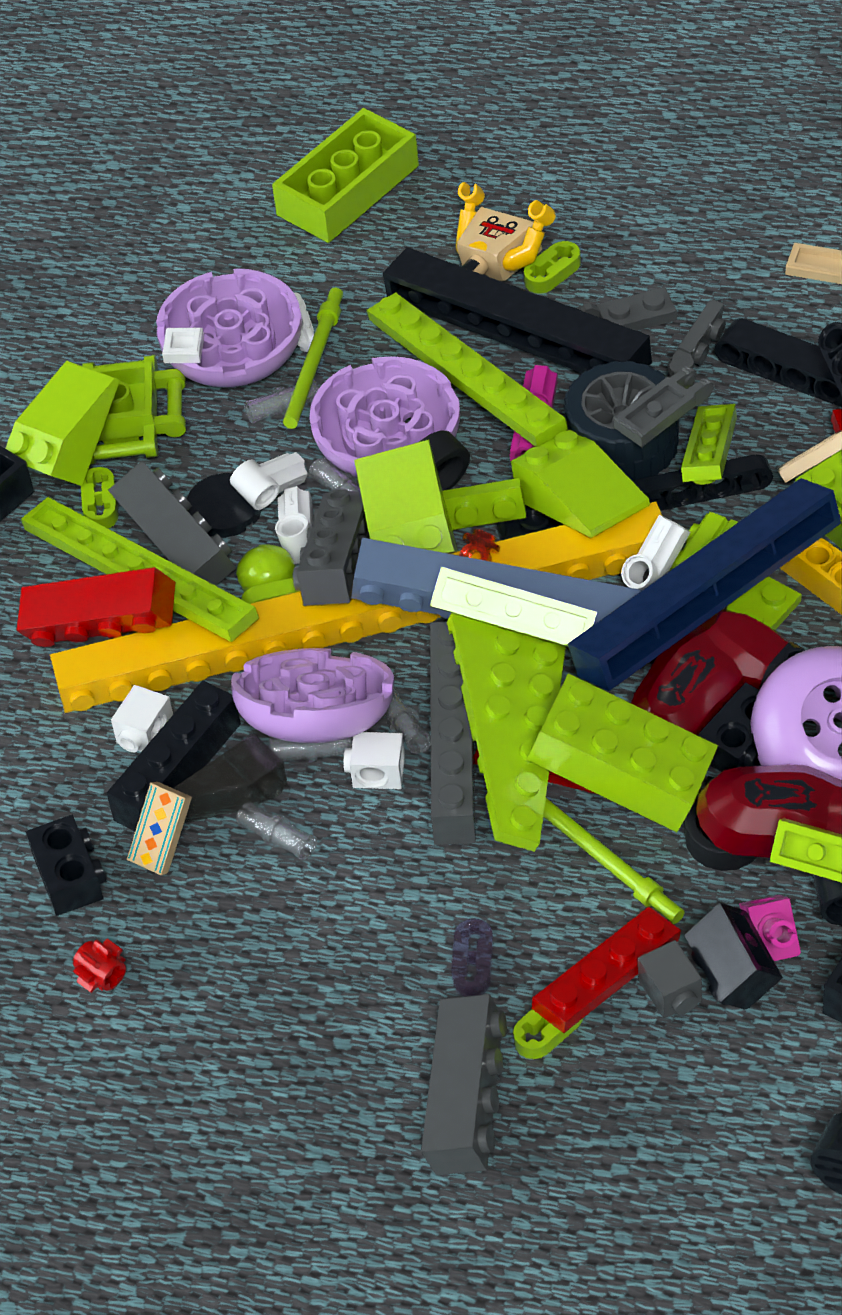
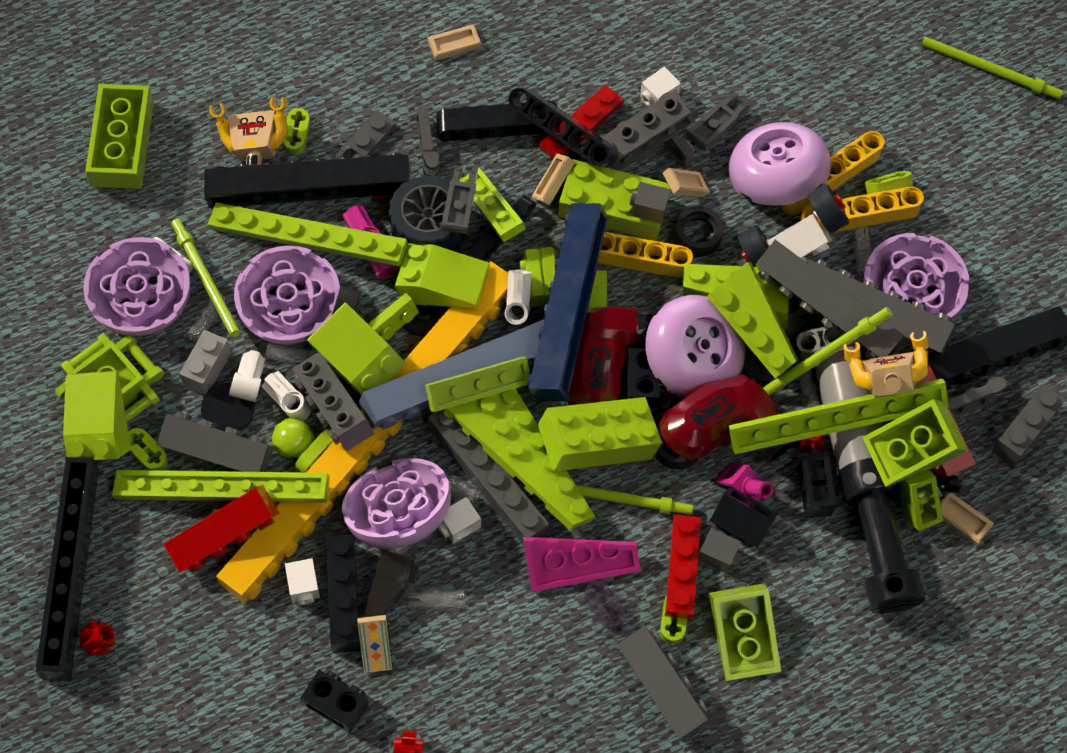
camera: 45 degrees left, 15 degrees up
(183, 345) = (125, 319): white tile -> none
(237, 438) = (205, 362): none -> light grey brick
(469, 879) = (574, 561): none -> dark pink wing
(479, 542) = (420, 349): clear red plate -> none
(622, 1091) = (745, 631): none -> lime slope

